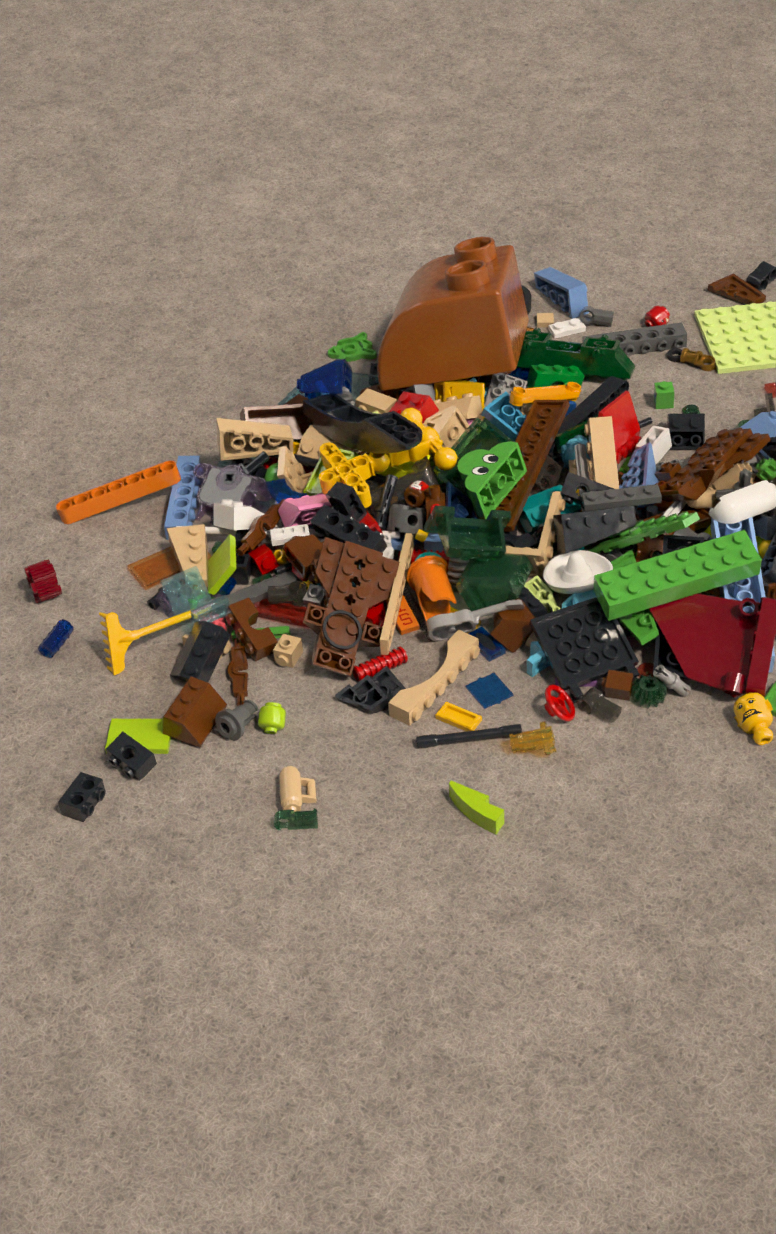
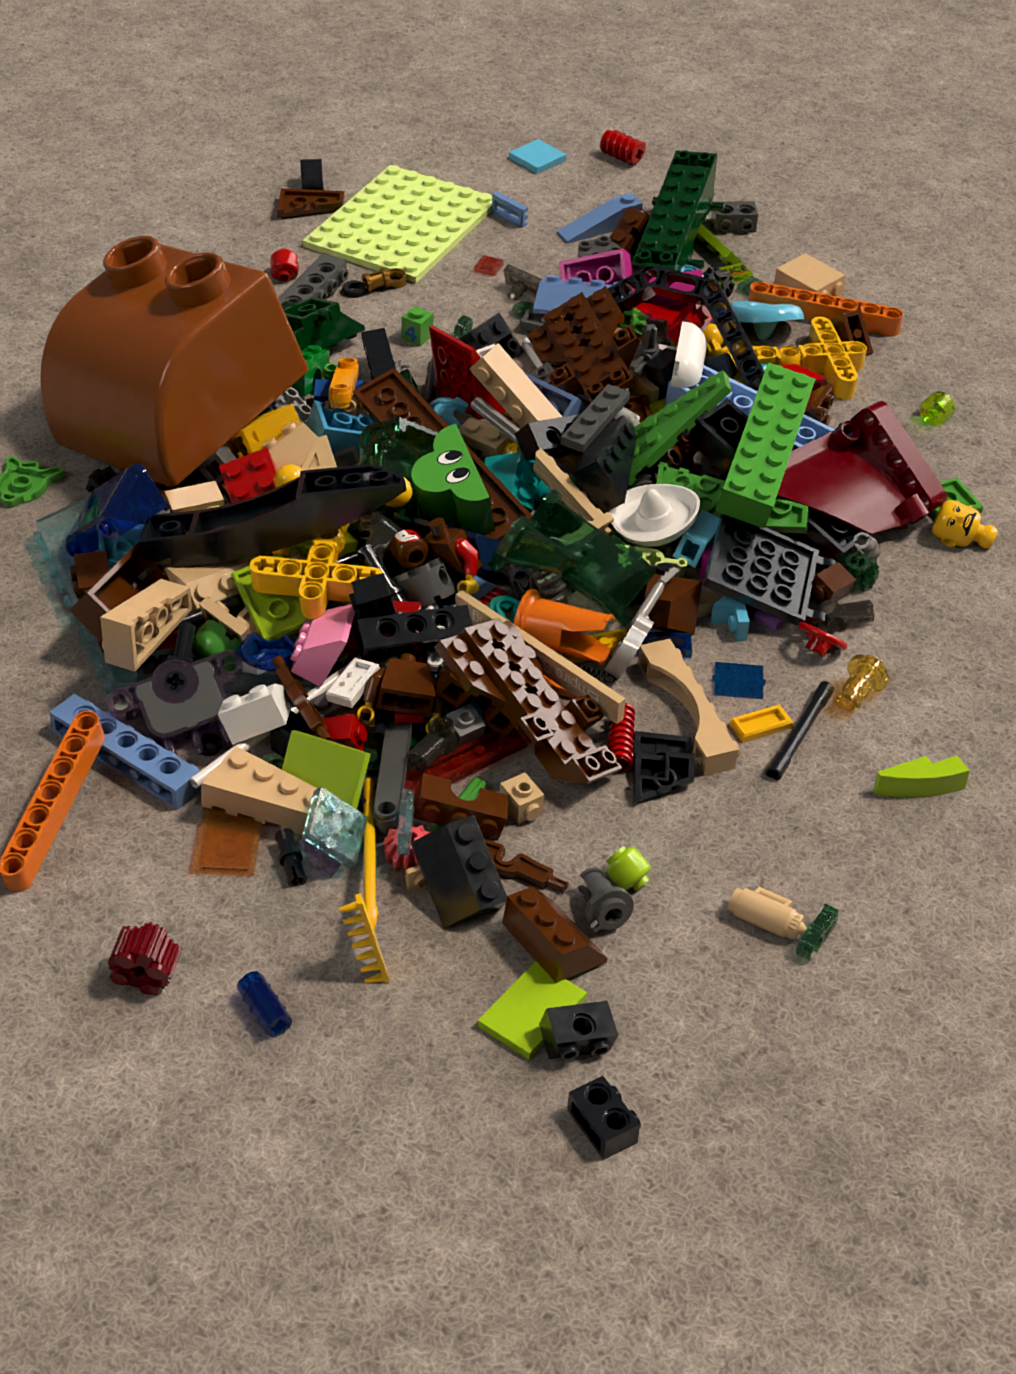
camera: 60 degrees left, 0 degrees up
(330, 641) = (559, 734): black piece -> none

